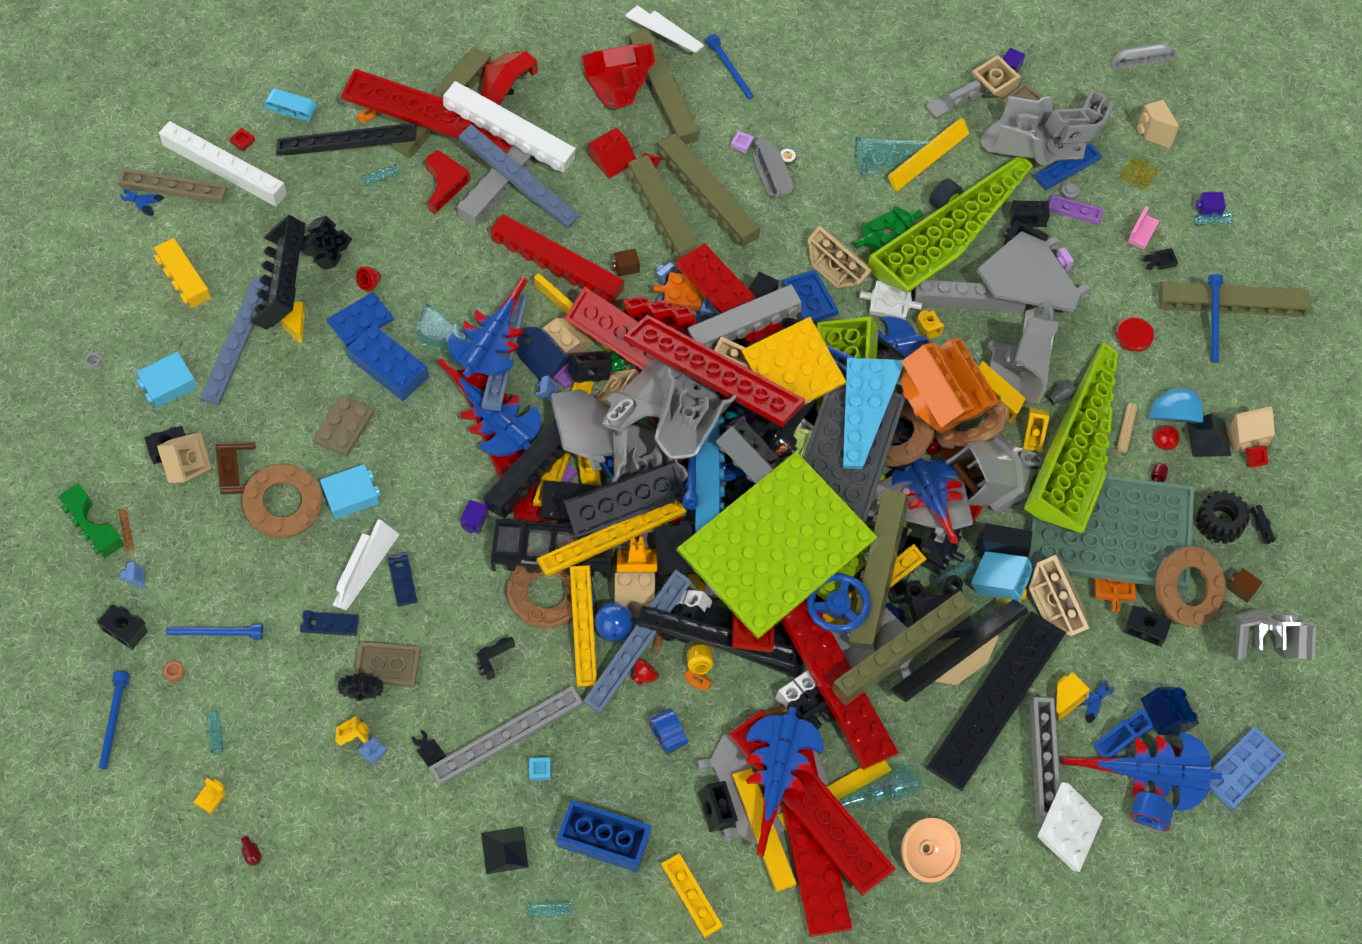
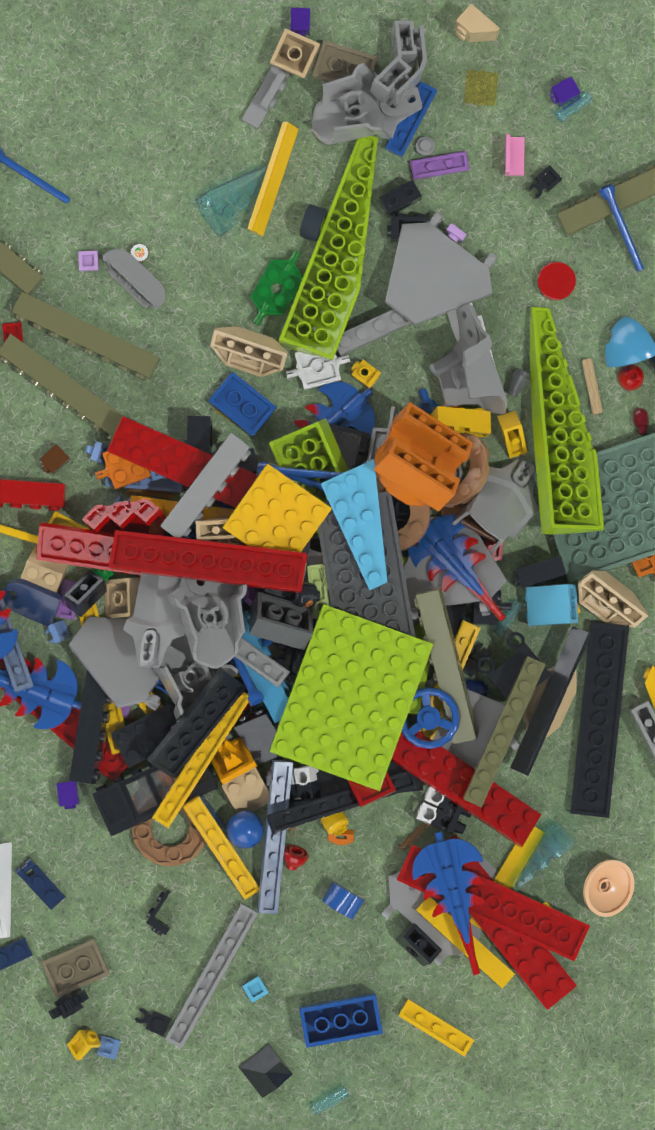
camera: 20 degrees left, 25 degrees up
(712, 475) = (261, 663): none -> light grey tile

